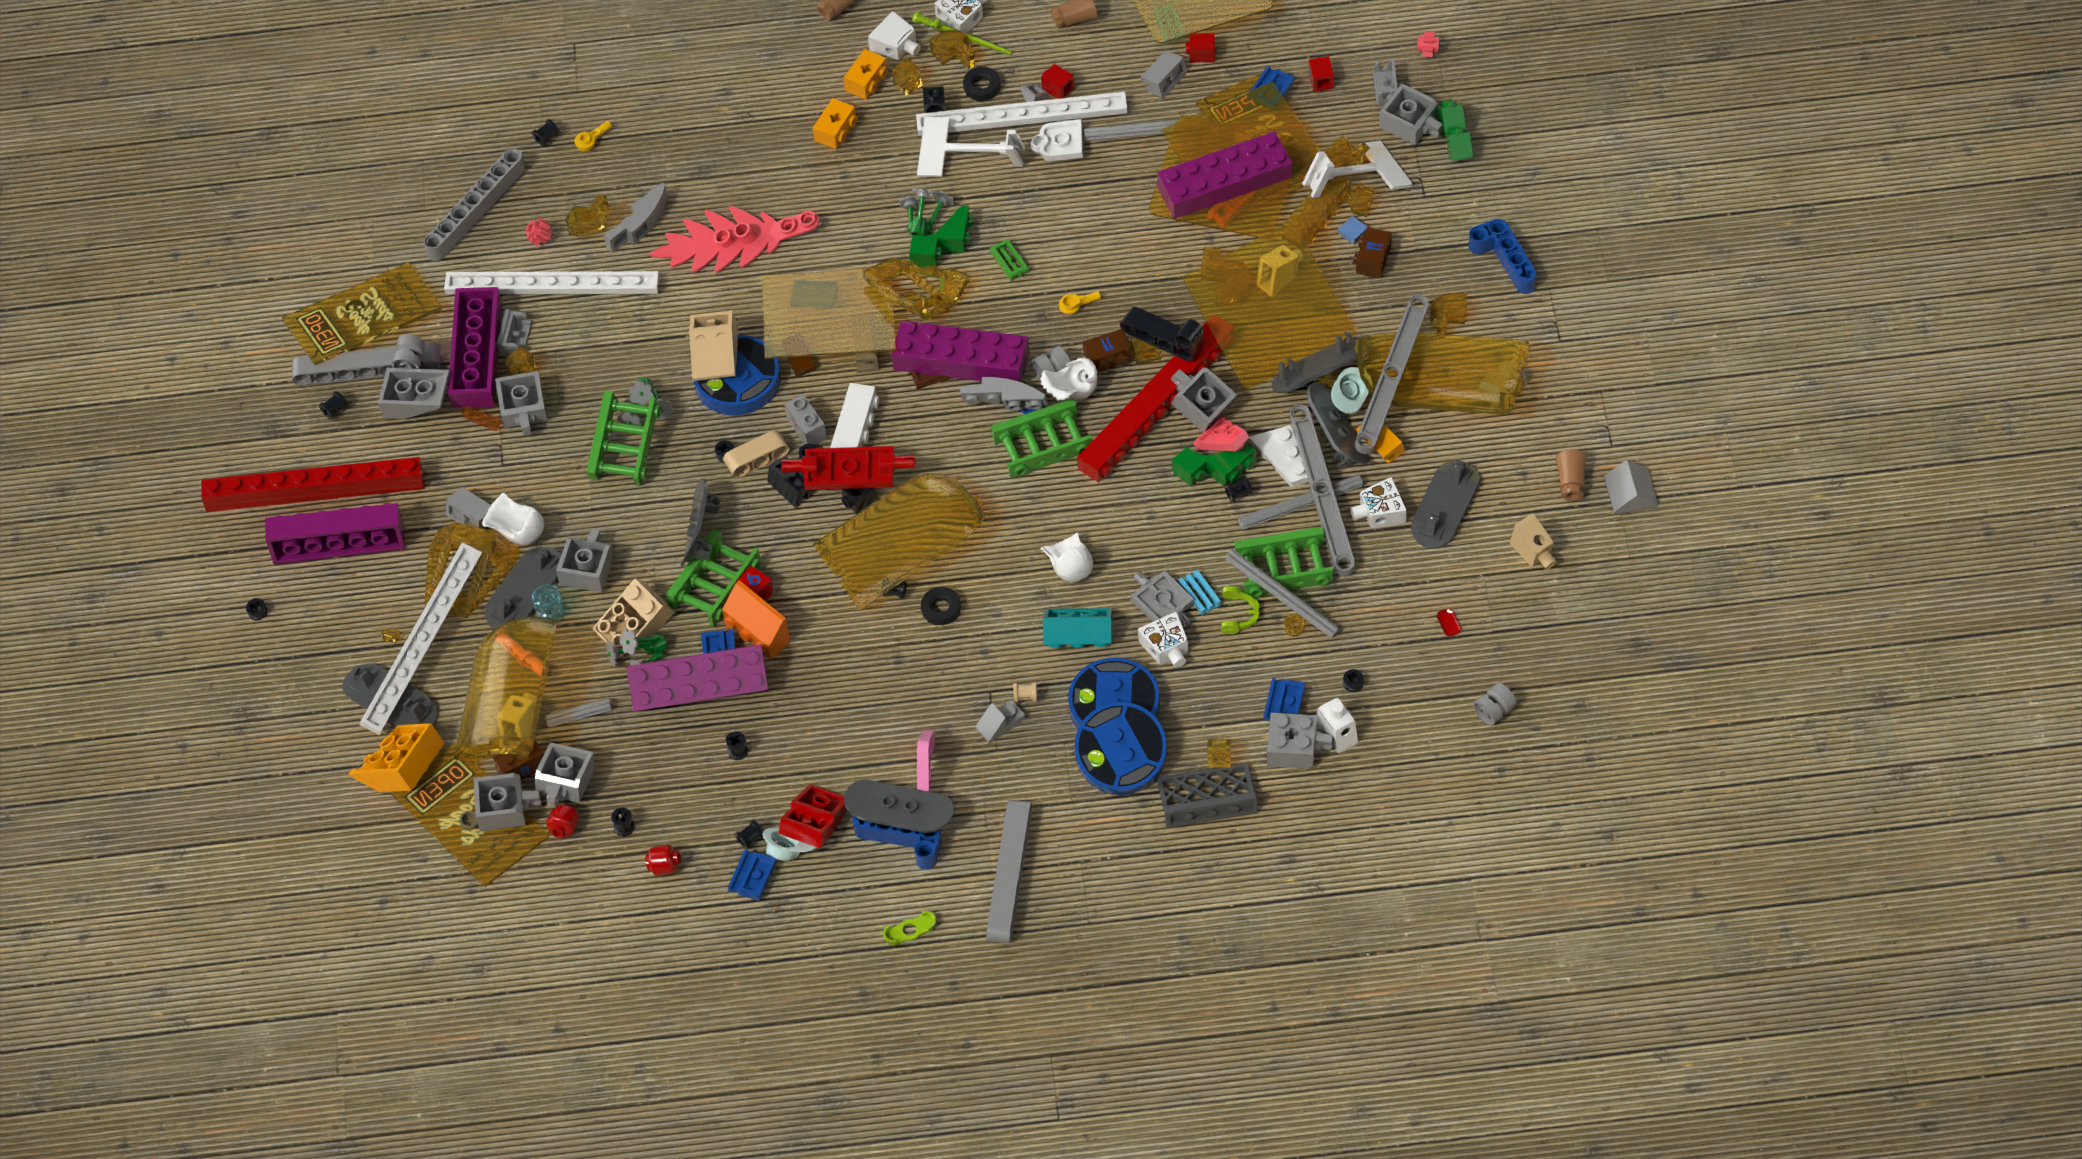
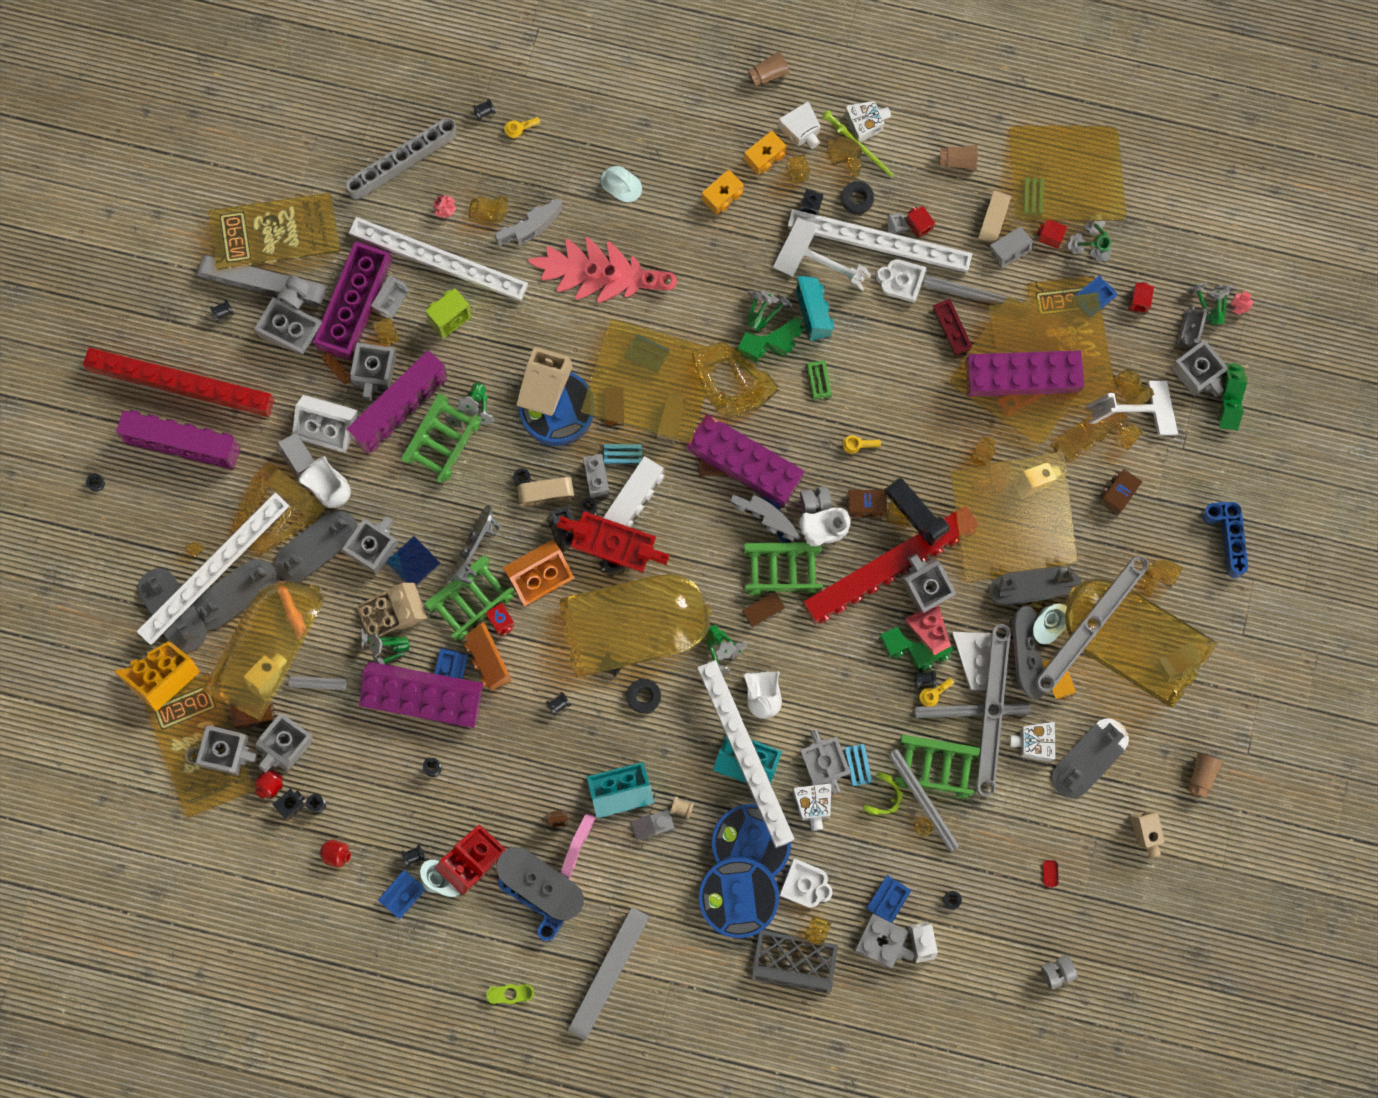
camera: 10 degrees right, 20 degrees up
(450, 661) = (234, 593): none -> dark grey piece
(489, 470) = (323, 423): none -> white slope
(548, 602) = (327, 573): clear light blue wheel -> none
(561, 422) = (397, 402): none -> magenta brick
(584, 323) = (448, 313): none -> lime brick
(593, 840) = (280, 804): none -> black brick
(638, 564) = (413, 562): none -> clear blue tile
(721, 153) = (621, 184): none -> light aqua piece
(779, 529) = (538, 572): none -> orange slope
(825, 391) = (622, 447): none -> medium azure tile
(850, 642) = (558, 703): none -> black bush
(894, 744) = (557, 818): none -> reddish brown slope
(952, 698) = (620, 790): none -> teal slope
(974, 192) = (814, 307): none -> teal slope
(1009, 523) = (725, 650): none -> plant
(1037, 485) = (763, 609): none -> reddish brown tile
(1072, 608) = (745, 754): none -> white plate
(1131, 165) = (952, 327): none -> dark red plate
(1134, 52) = (994, 217): none -> tan beam
(1189, 718) = (805, 885): none -> white plate
(1251, 30) = (1100, 243): none -> light grey plant
(1251, 503) = (929, 697): none -> yellow plate
(1352, 230) = (1111, 460): medium blue tile -> none
(1407, 63) = (1216, 315): none -> plant
(1630, 488) = (1247, 804): light grey slope -> none

